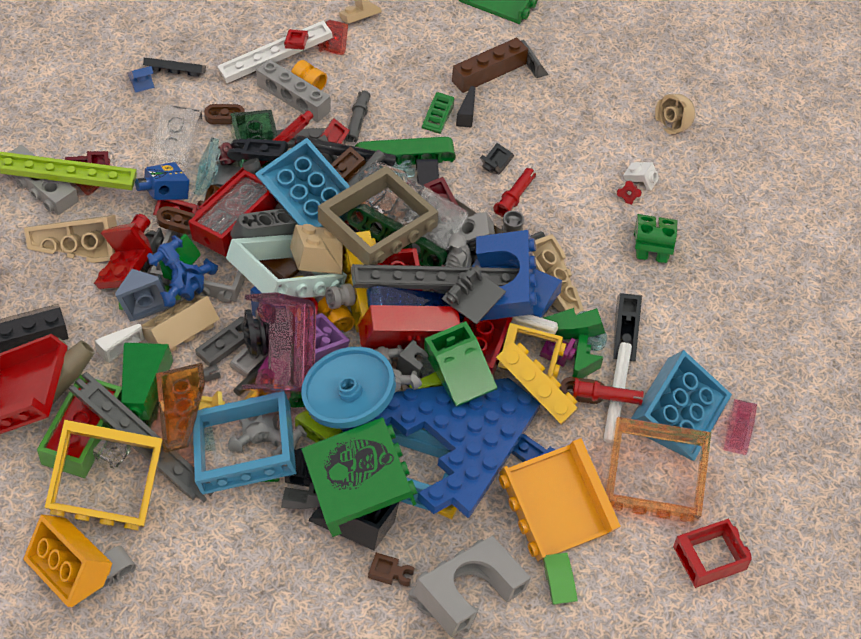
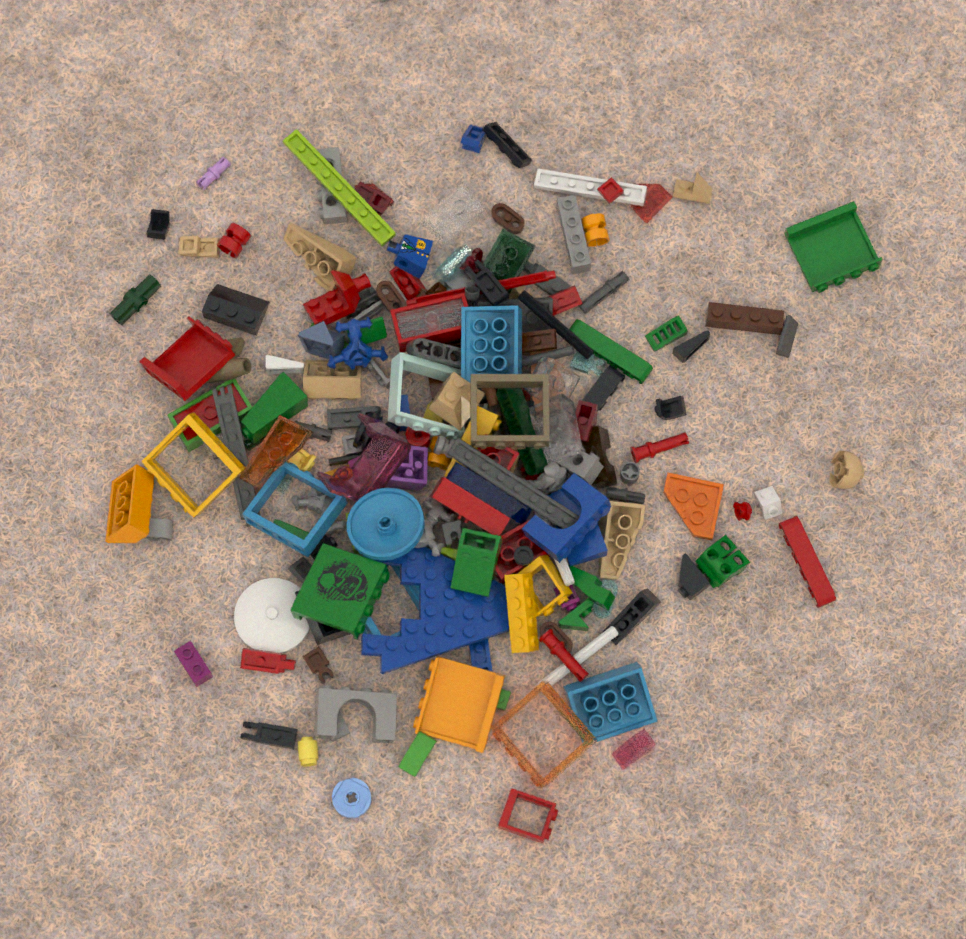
camera: 45 degrees right, 20 degrees up
(302, 564) = (265, 616): none -> white dish
(334, 606) = (265, 661): none -> red hinge
(473, 295) = (525, 519): dark grey hinge -> none
(494, 335) = (523, 556): none -> black tile
(587, 212) = (695, 502): none -> orange plate
(642, 265) = (691, 579): none -> black slope
(716, 193) = (808, 561): none -> red beam

